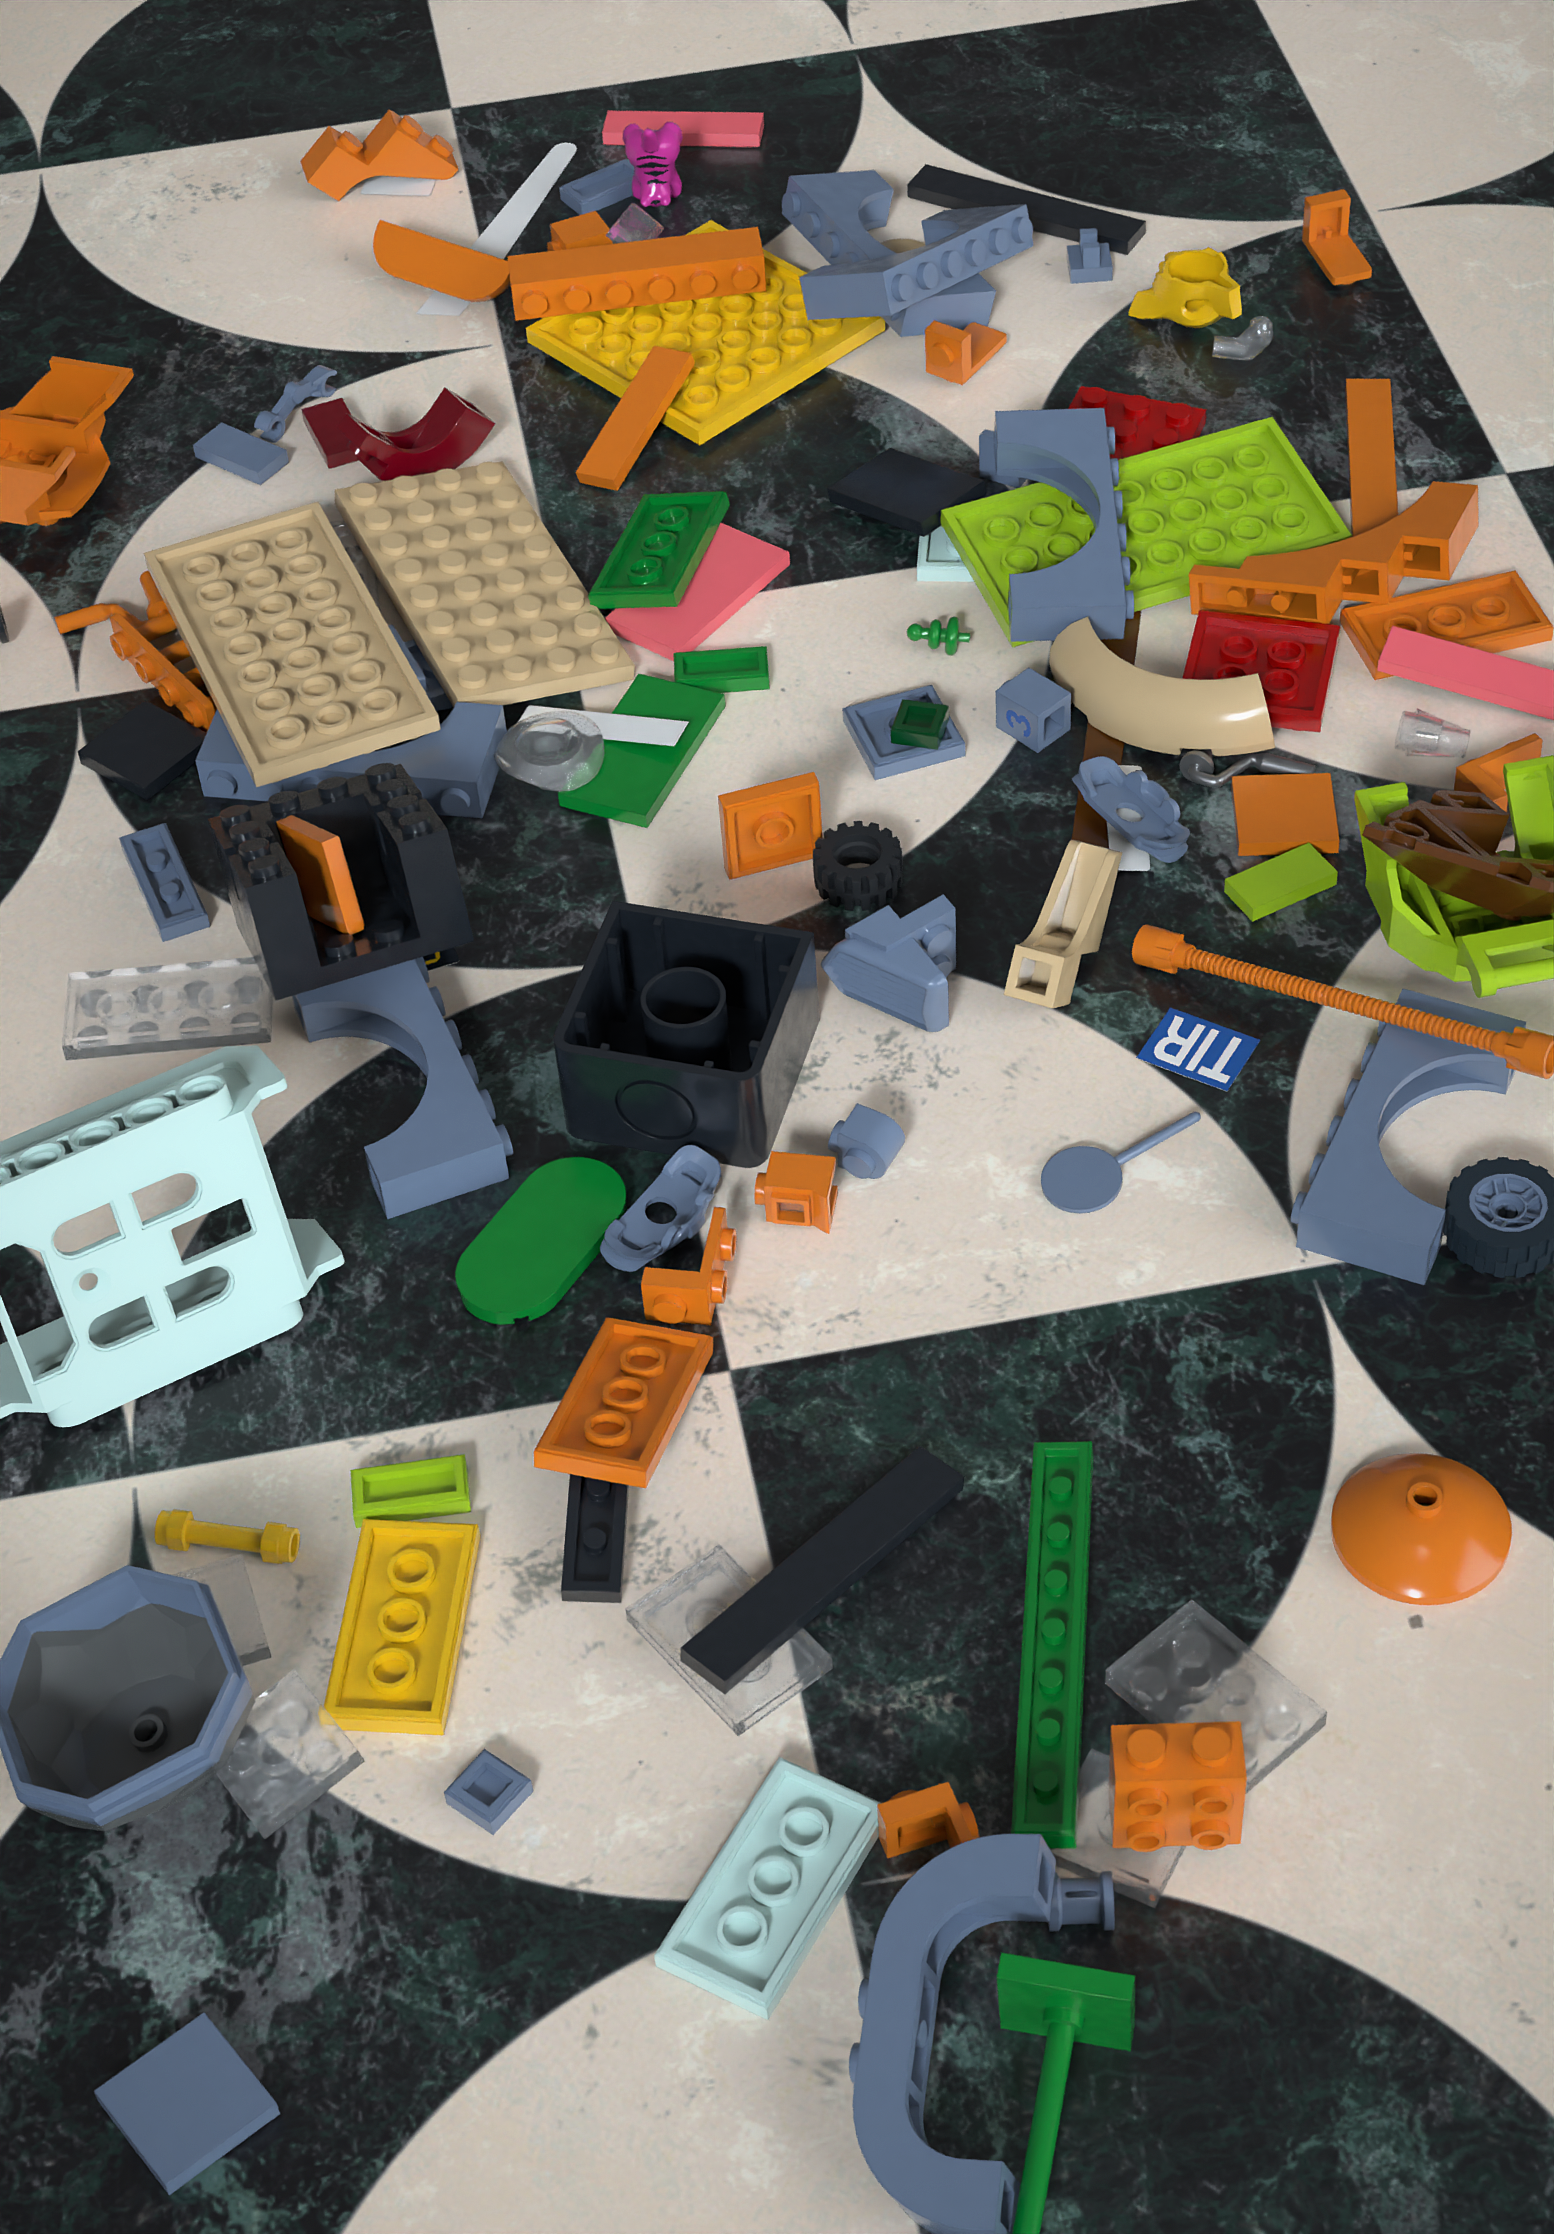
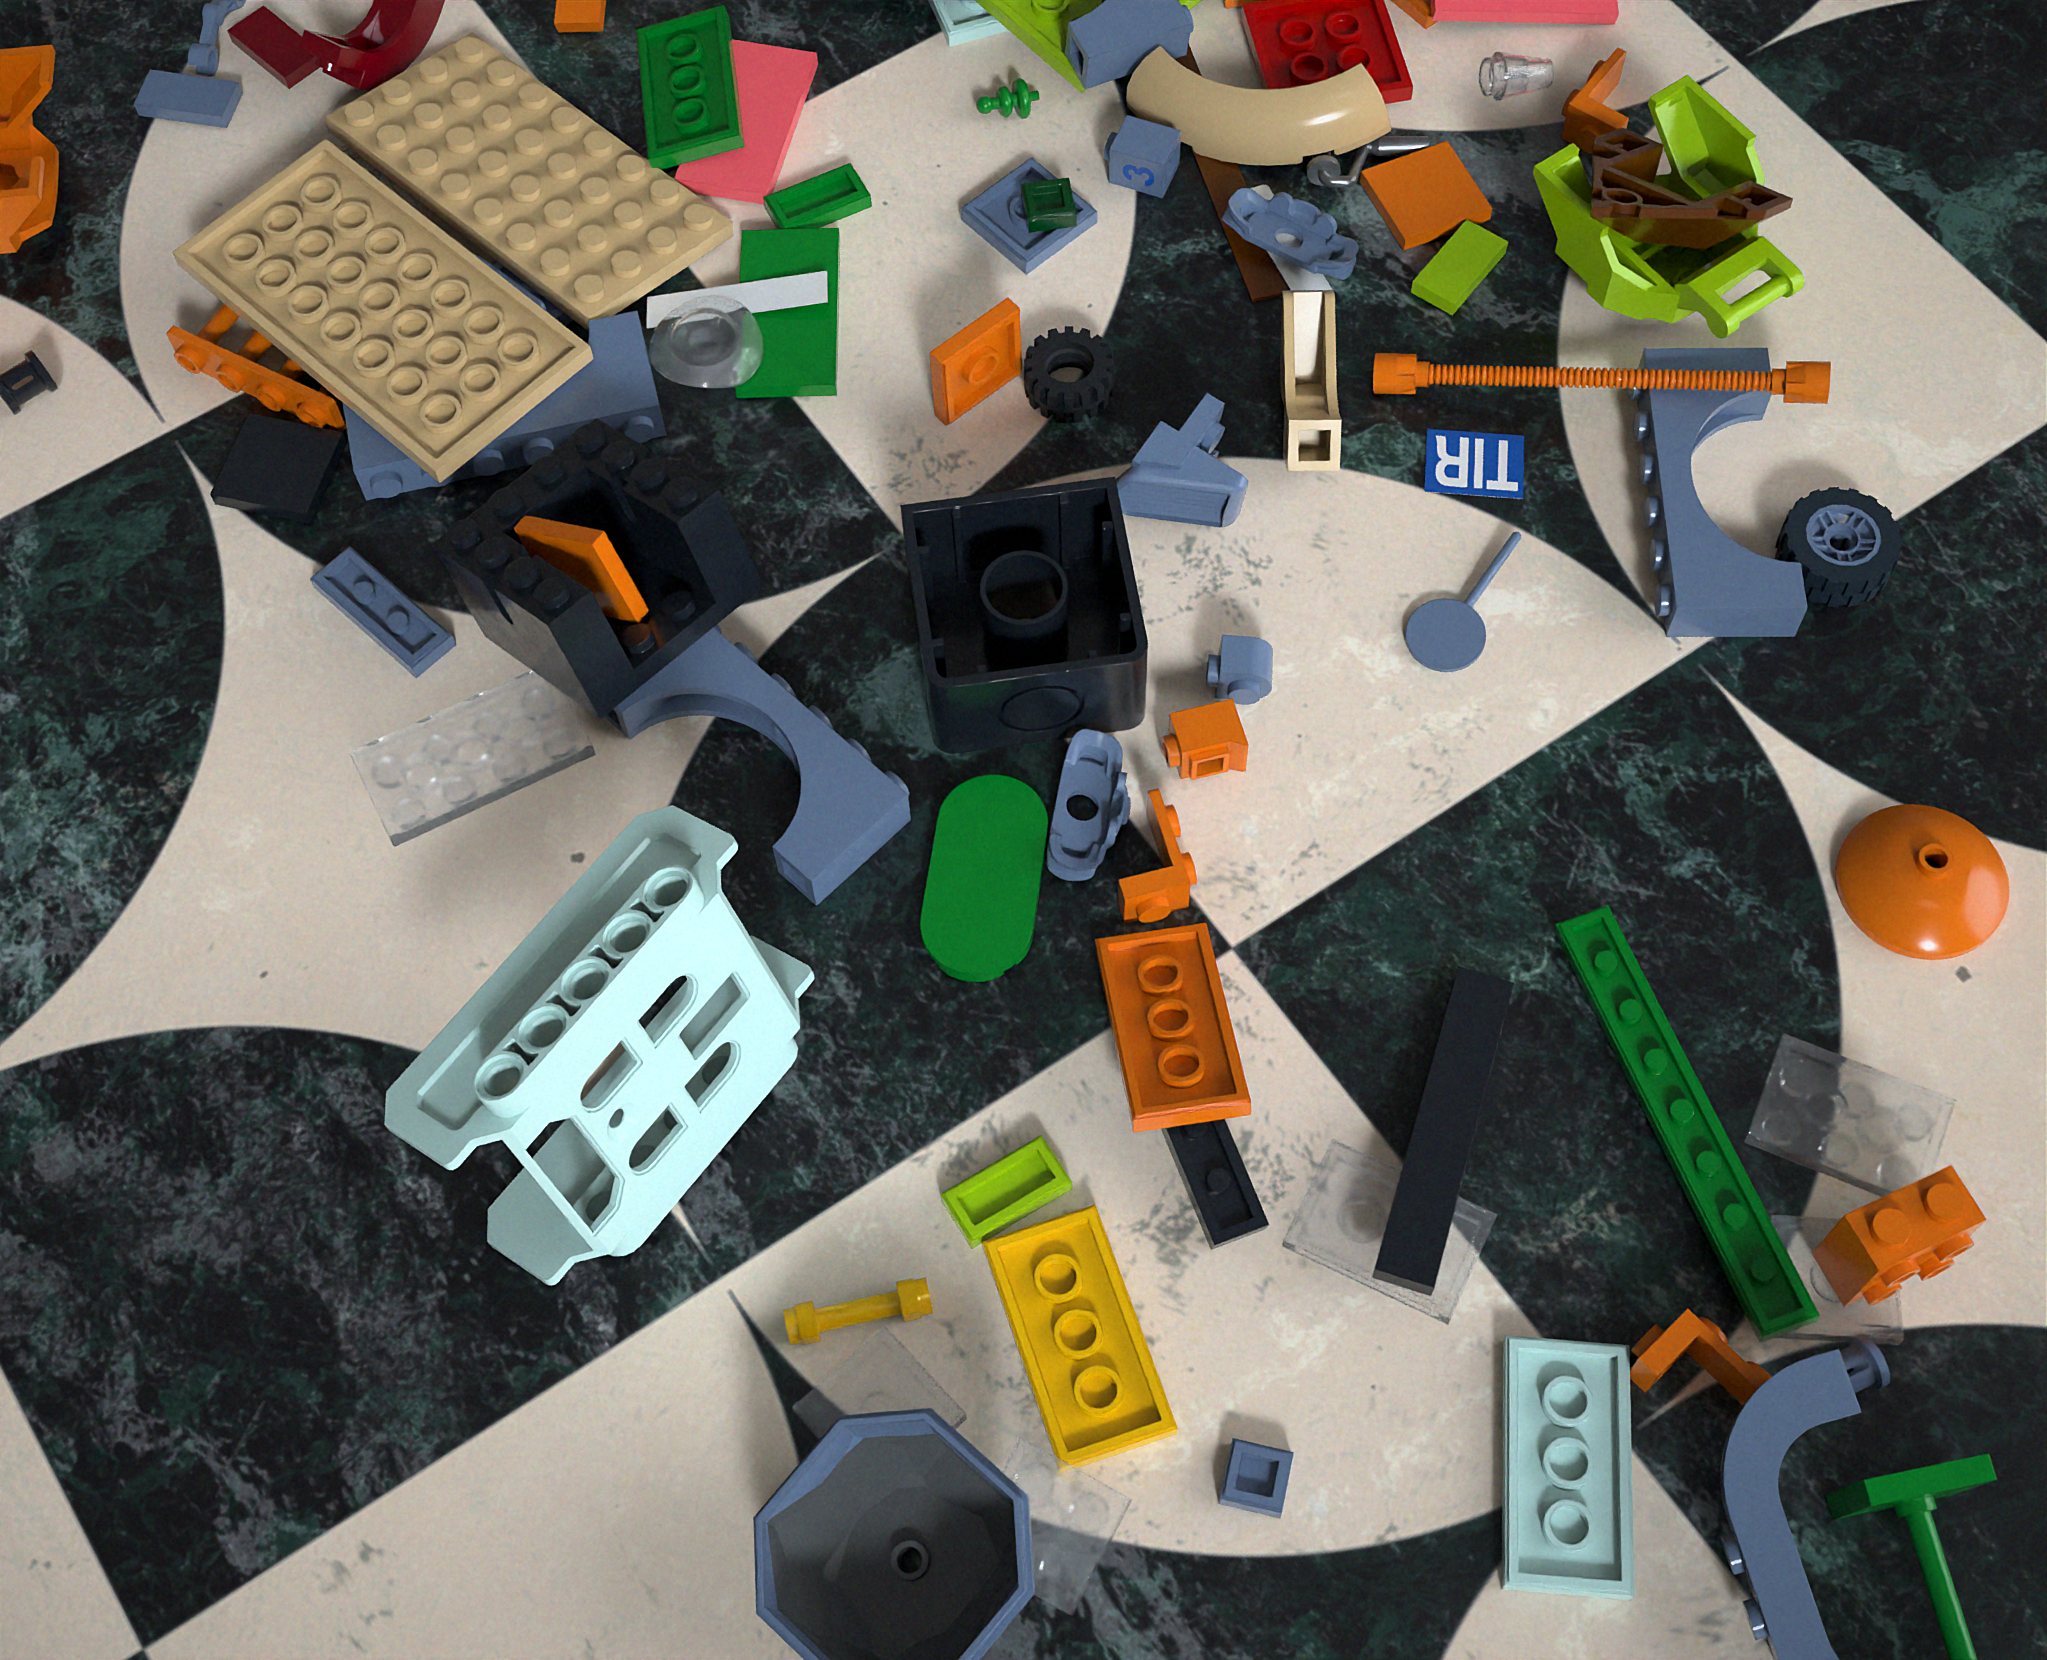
camera: 25 degrees left, 15 degrees up
(101, 612) = (204, 307): orange piece -> none

